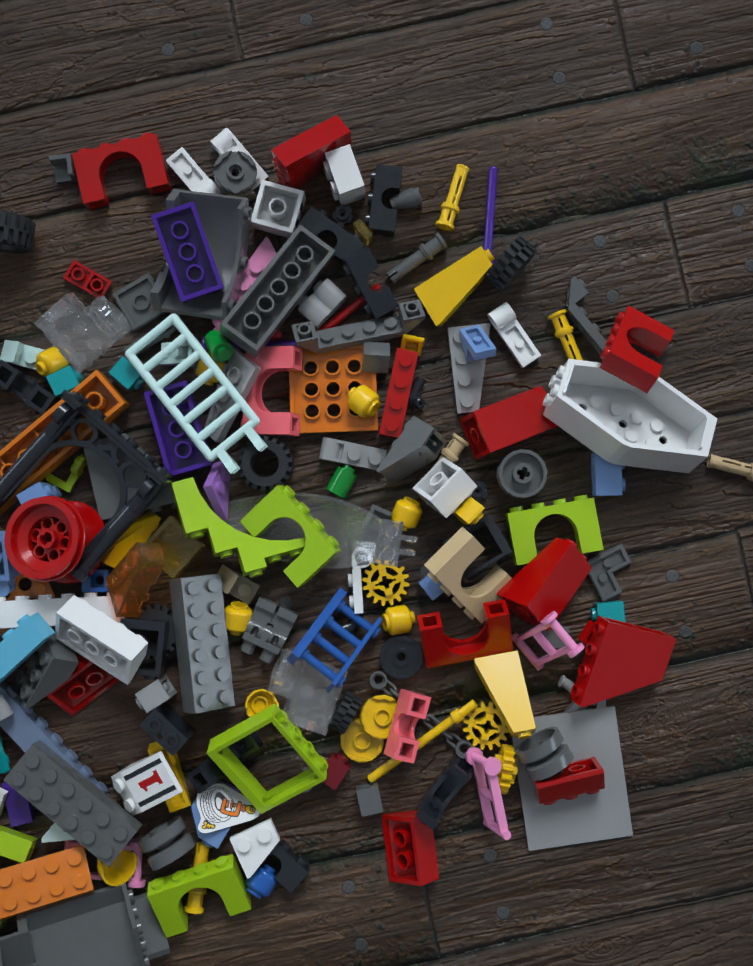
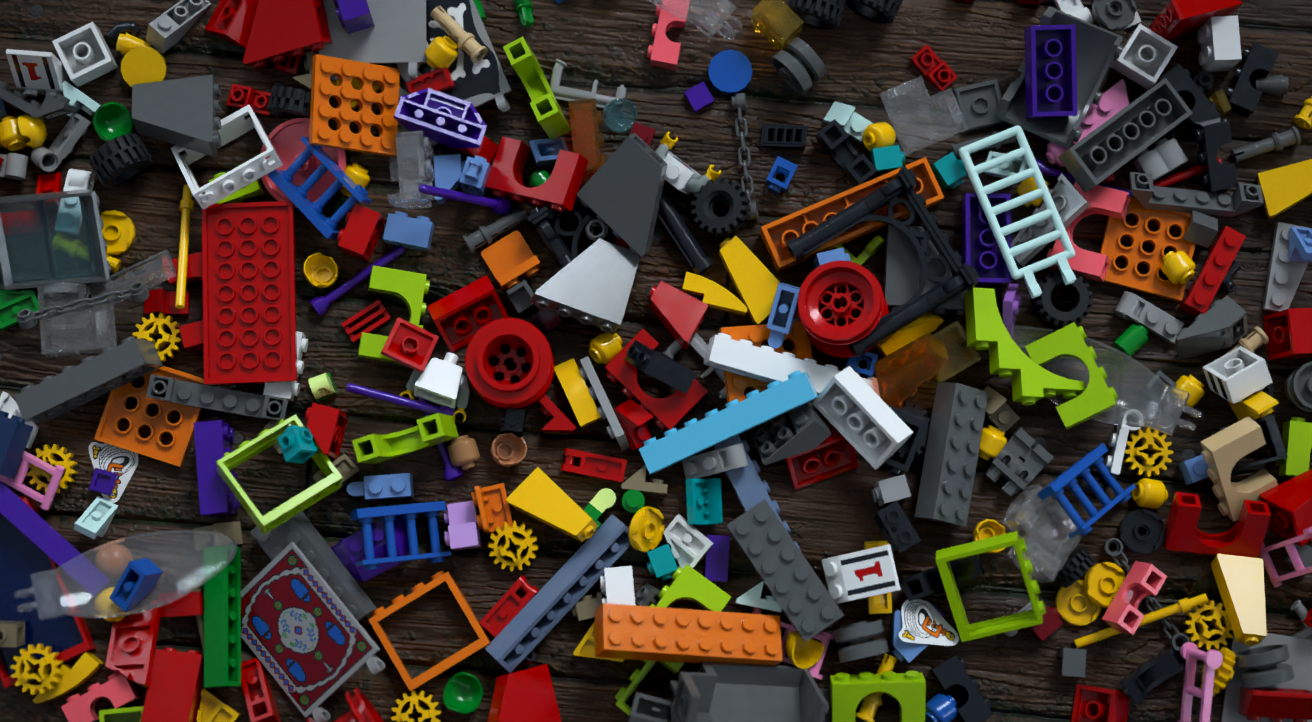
camera: 10 degrees right, 5 degrees down
(218, 346) = (1052, 170): green brick -> none
(255, 845) = (949, 670): white wing -> none
(412, 343) = (1240, 225): yellow slope -> none

